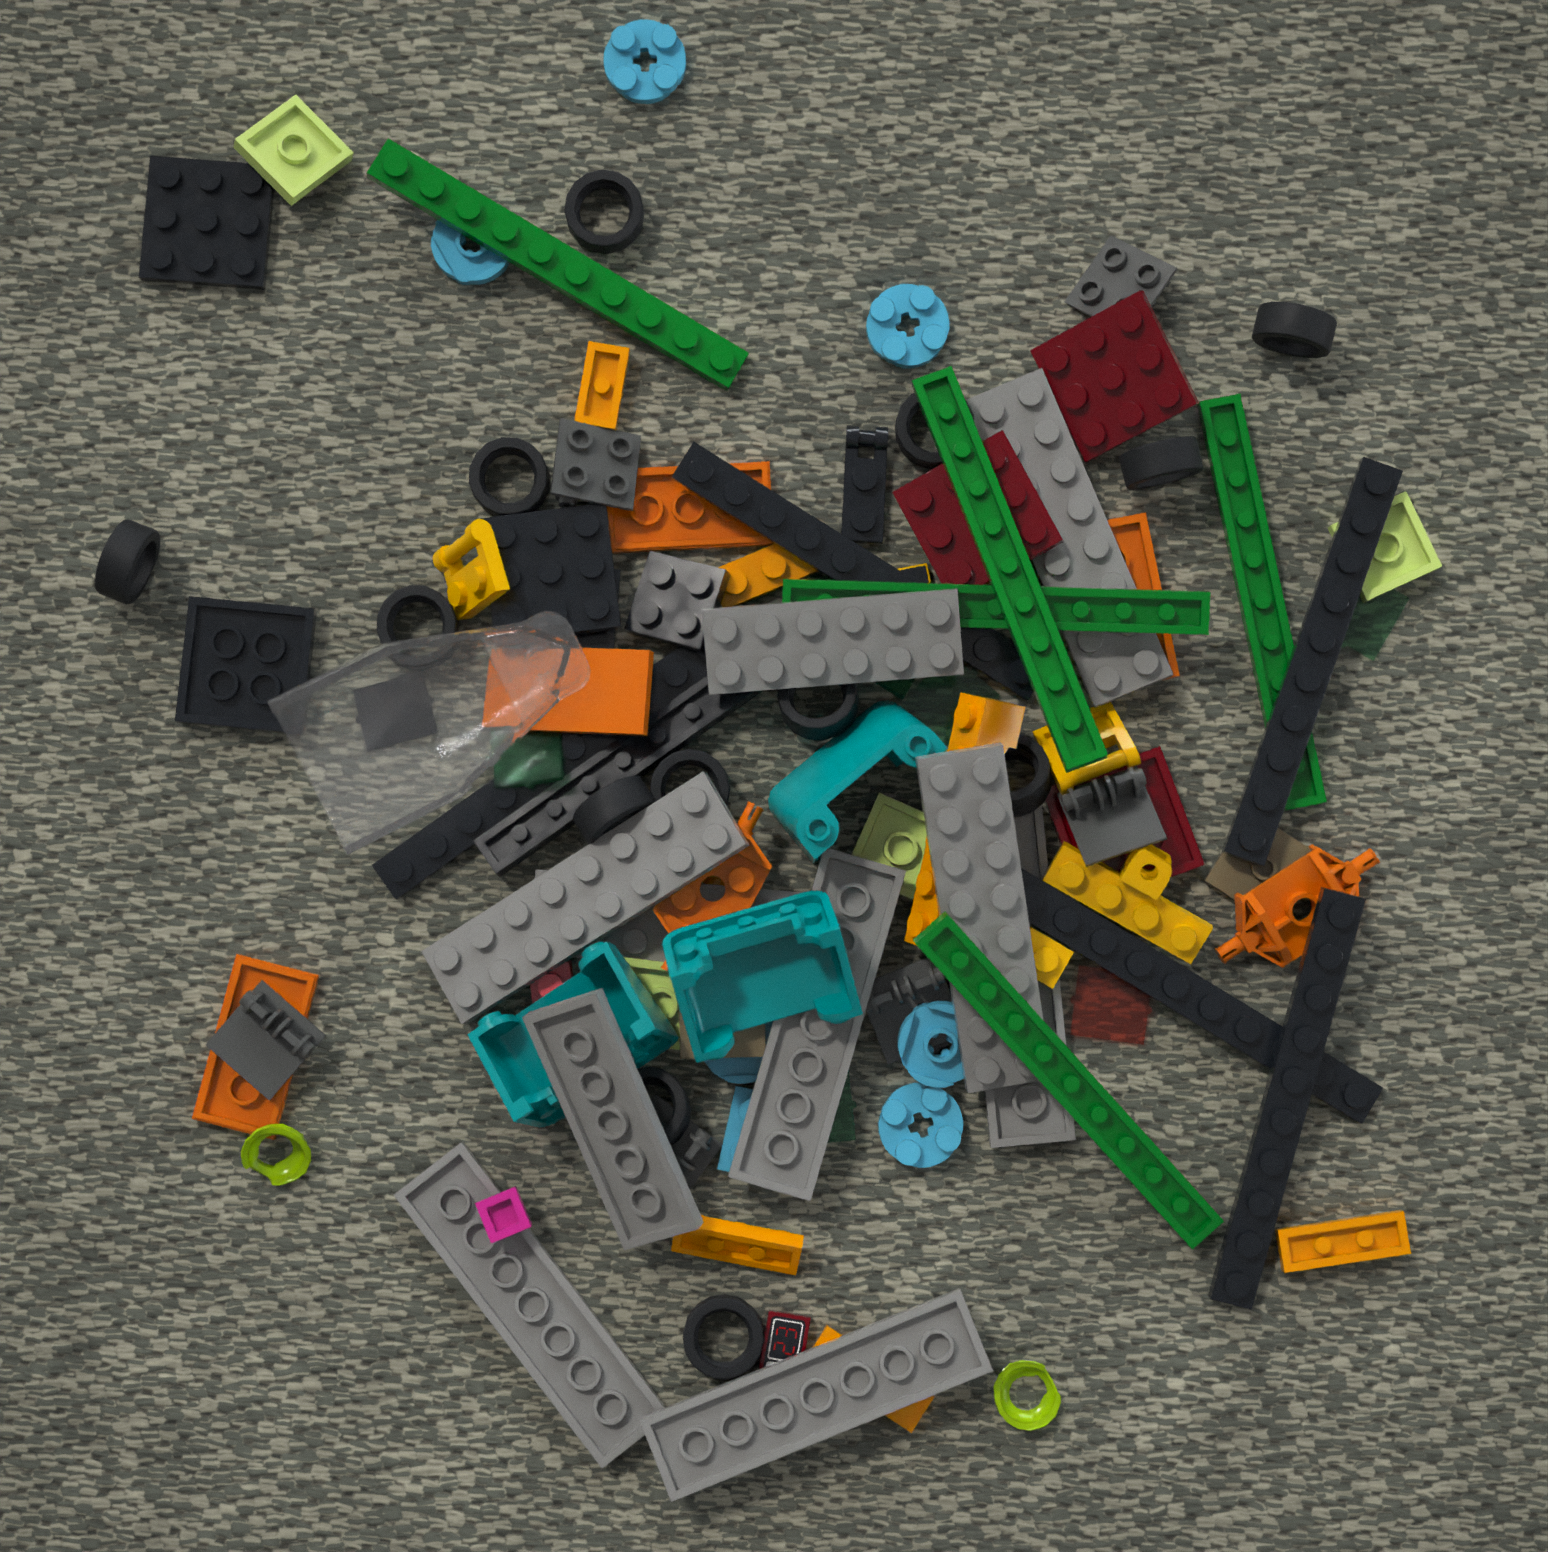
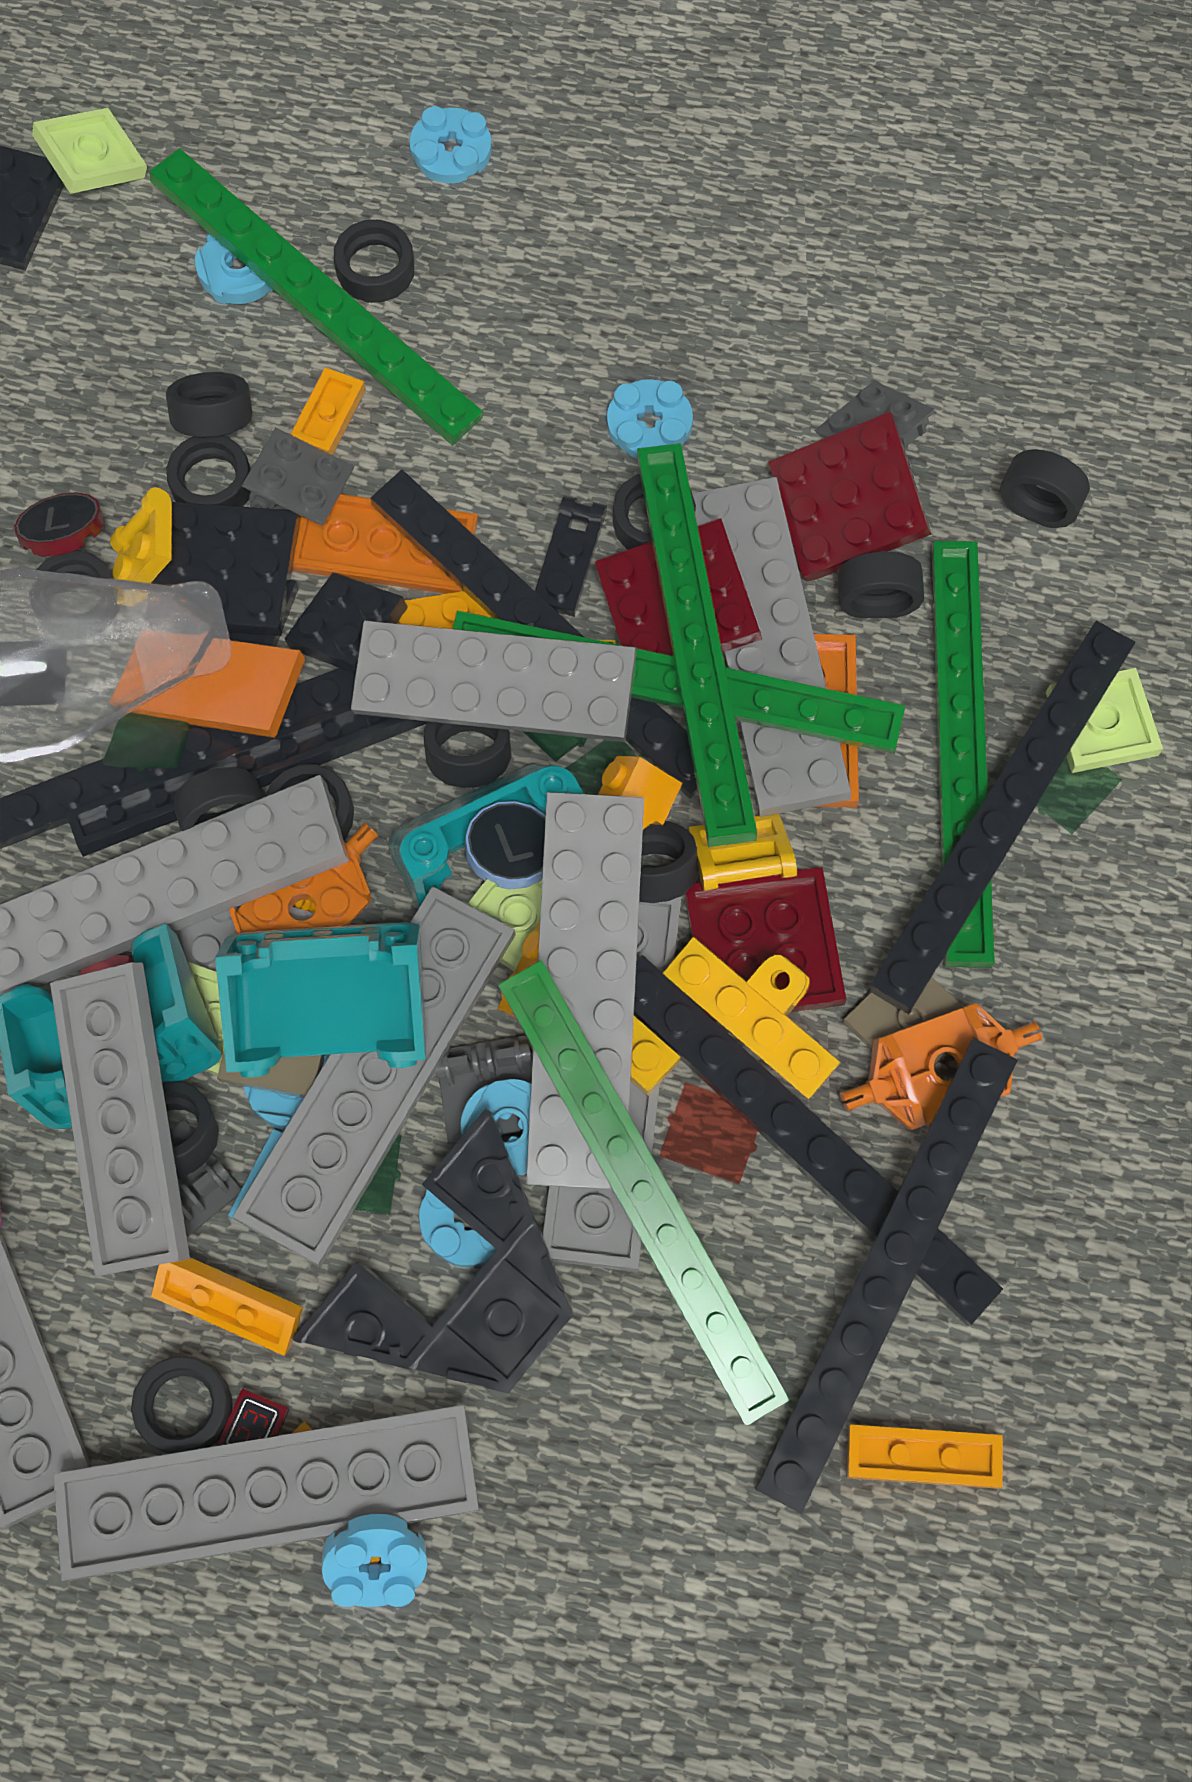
camera: 15 degrees right, 15 degrees down
(384, 559) = (59, 524): none -> tile
(487, 386) = (209, 404): none -> black tyre
(884, 794) = (507, 844): none -> black tile
(917, 1429) = (389, 1583): none -> medium azure plate
(967, 1210) = (498, 1318): none -> black wing
(1026, 1419) = (487, 1545): lime piece -> none
(1112, 816) = (752, 917): dark grey hinge -> none

